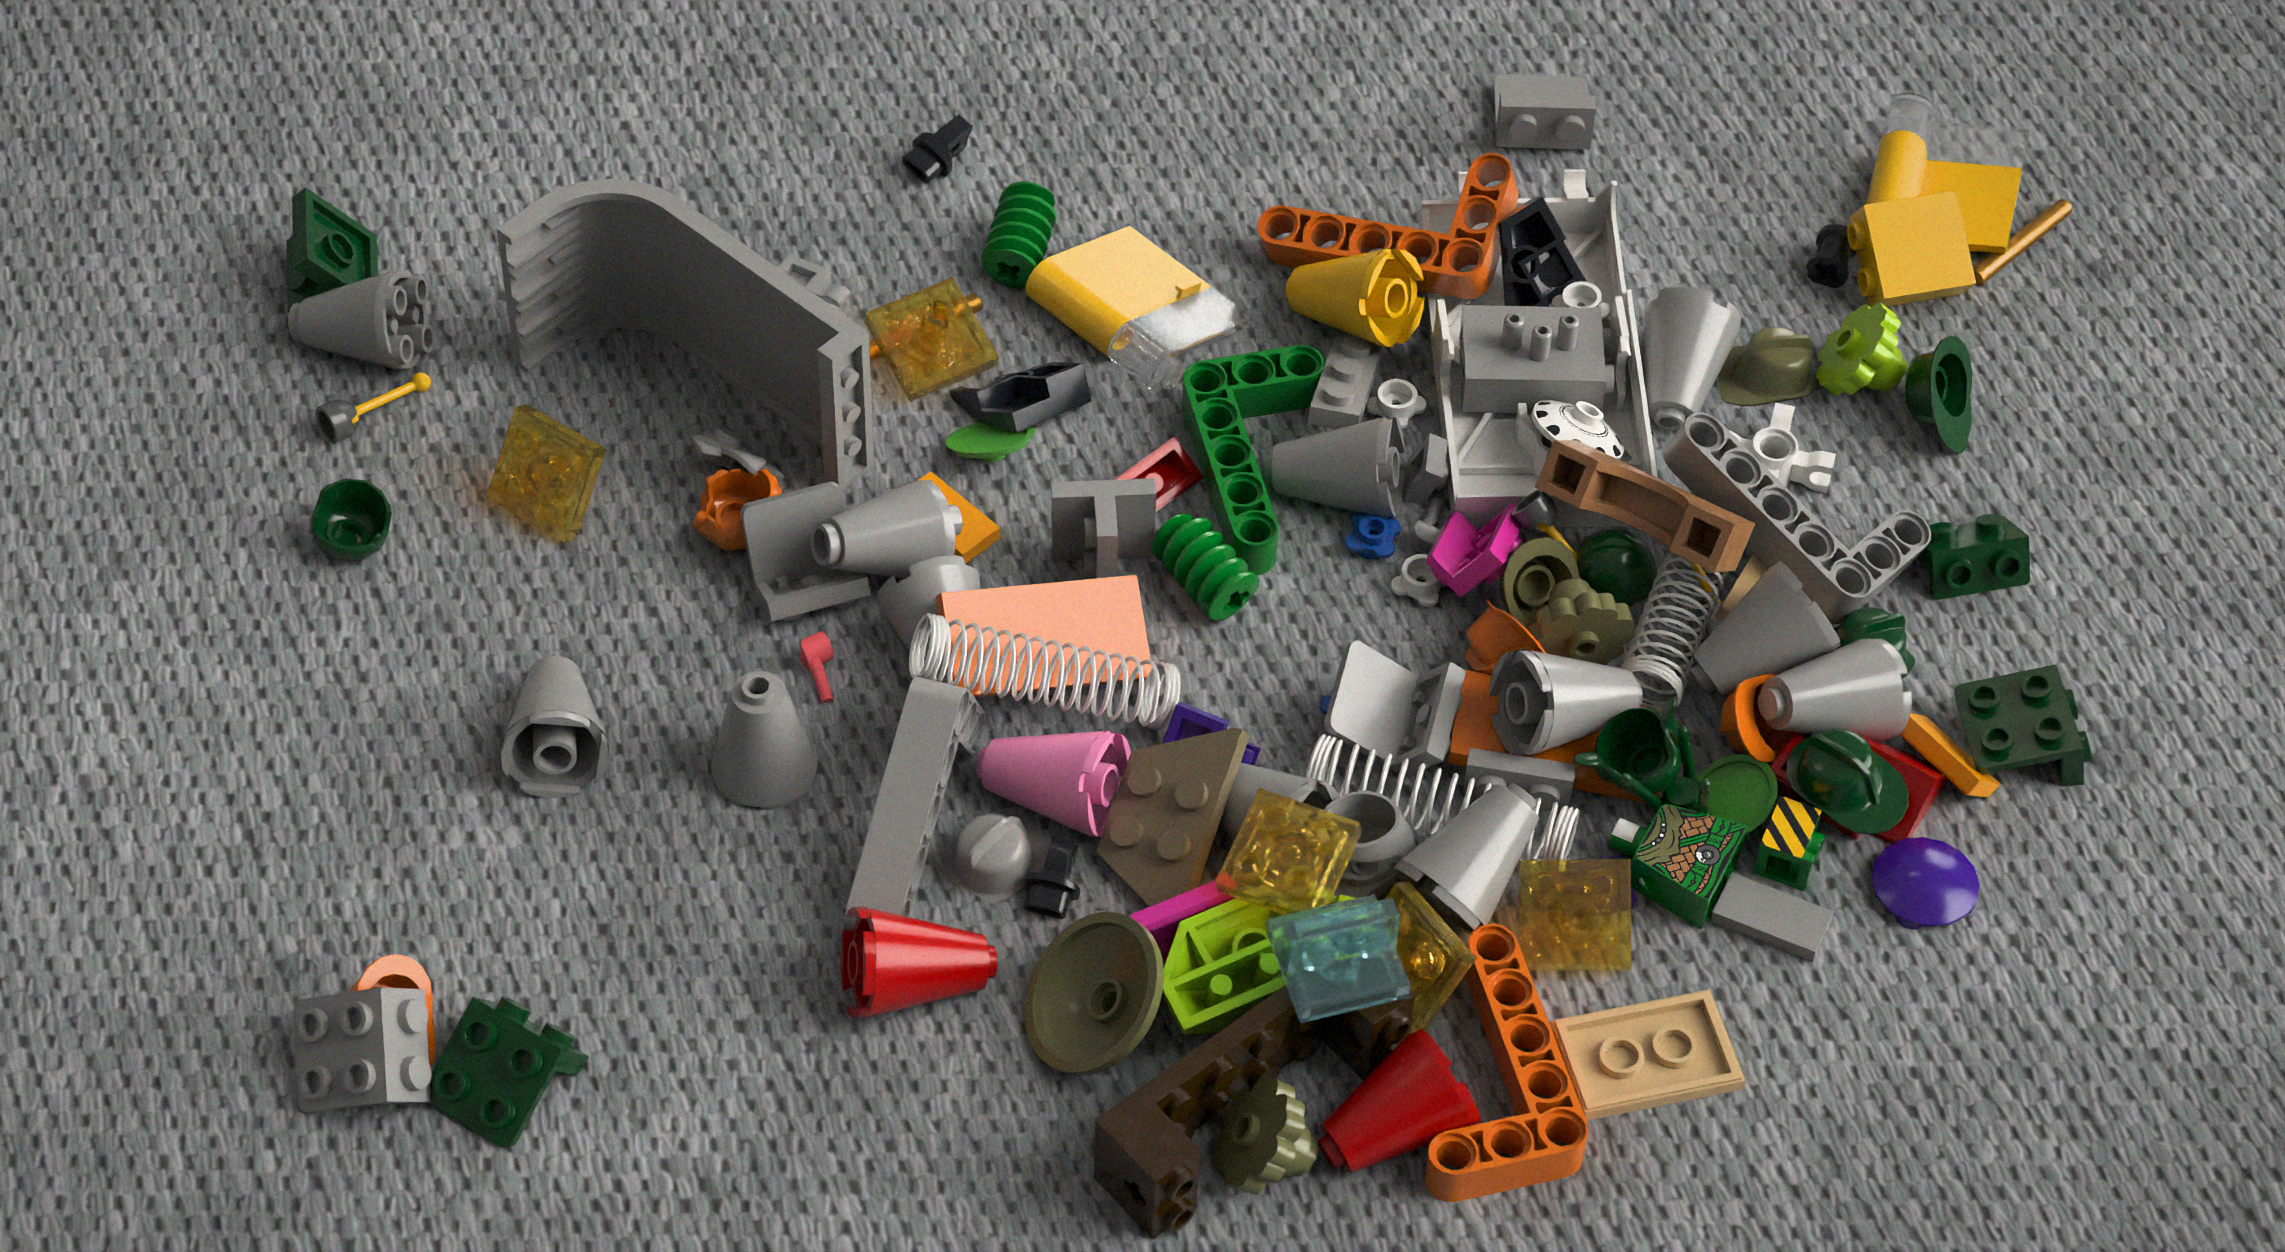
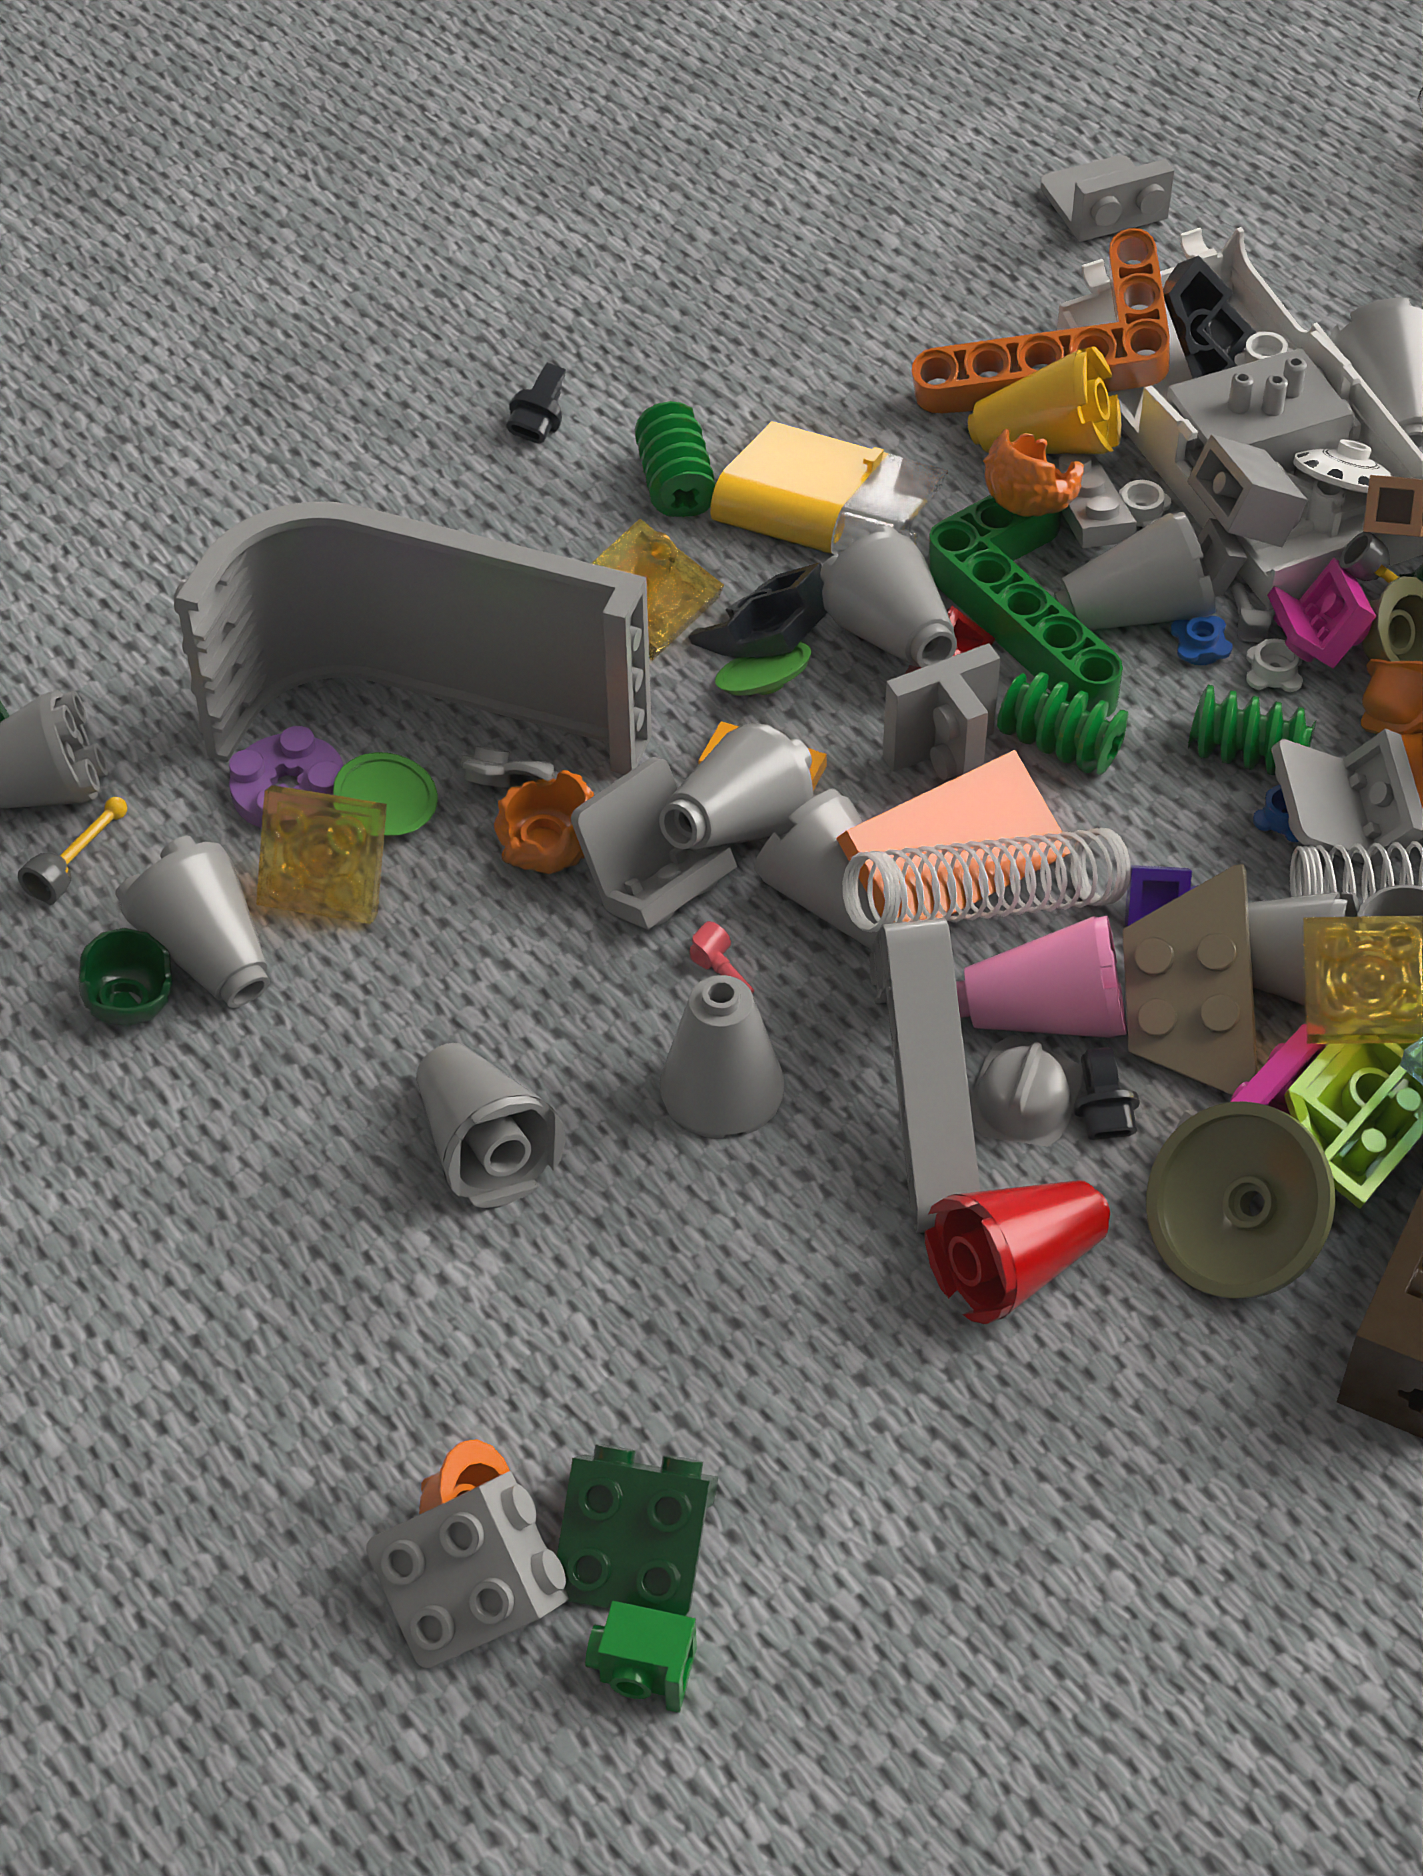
camera: 20 degrees left, 0 degrees up
(428, 492) = (201, 917): none -> light grey cone
(458, 1158) = (644, 1652): none -> green brick
(571, 382) = (265, 761): none -> medium lavender plate
(635, 439) = (394, 781): none -> bright green piece
(1116, 410) = (889, 598): none -> light grey cone
(1287, 346) = (1025, 480): none -> orange hair
(1340, 621) = (1245, 729): none -> green piece
(1470, 420) = (1247, 491): none -> light grey brick

